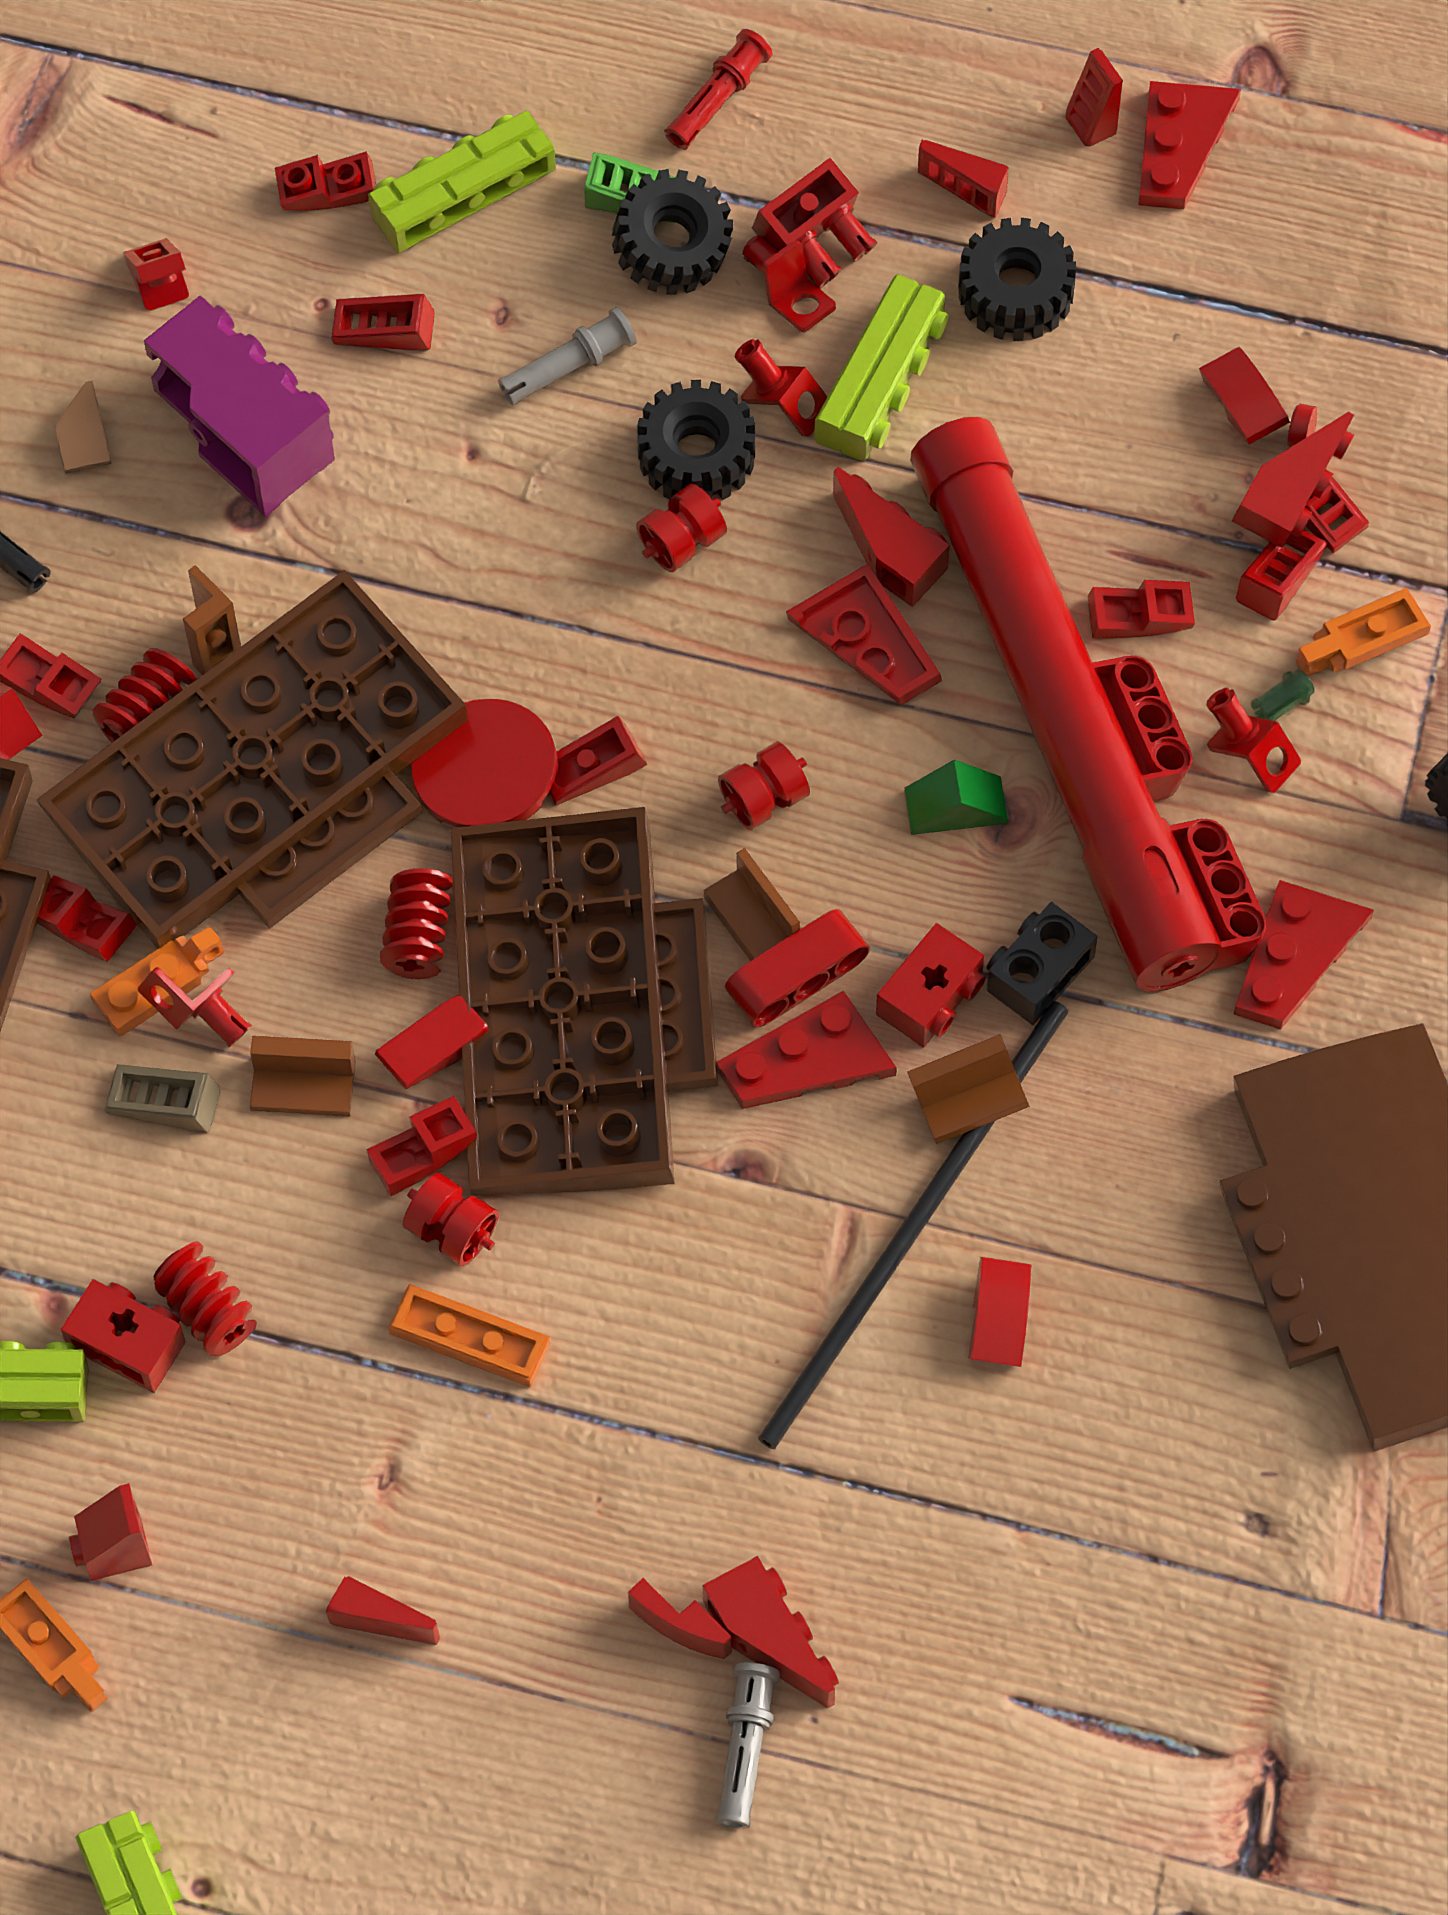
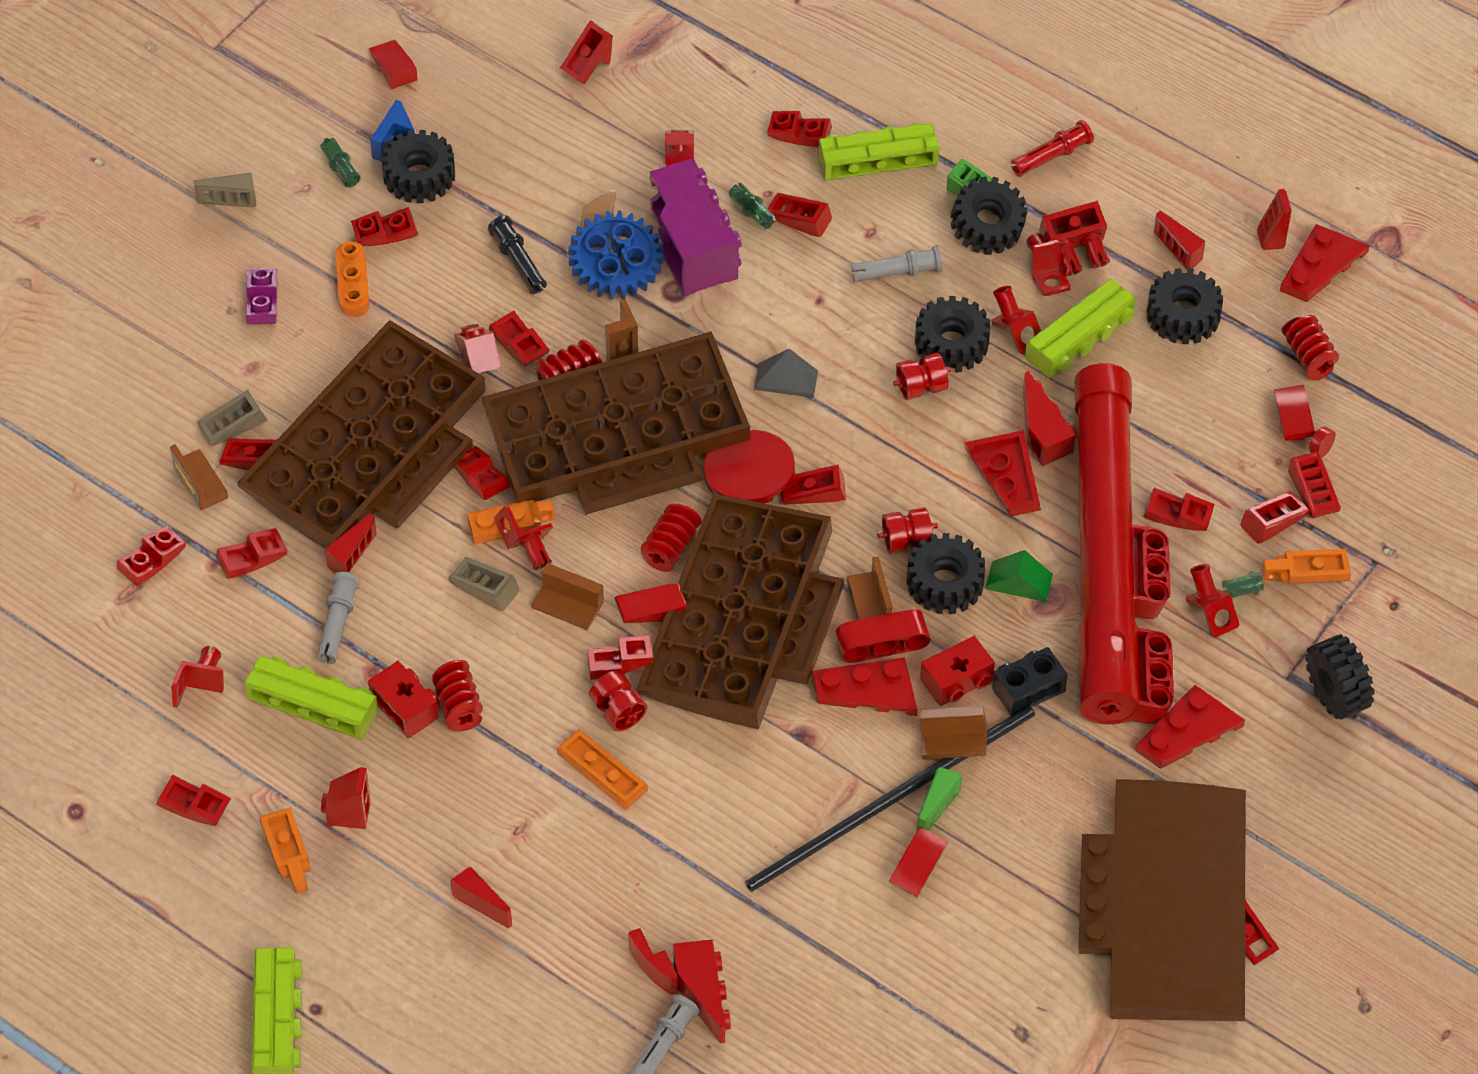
camera: 20 degrees right, 10 degrees down
(167, 461) = (639, 246): none -> blue gear
(309, 334) = (752, 205): none -> clear green axle
(476, 595) = (786, 375): none -> dark grey slope
(848, 802) = (946, 555): none -> black tyre
(987, 1188) = (942, 792): none -> bright green slope
(1224, 282) = (1311, 346): none -> red piece
(1286, 482) = (1295, 464): red slope -> none

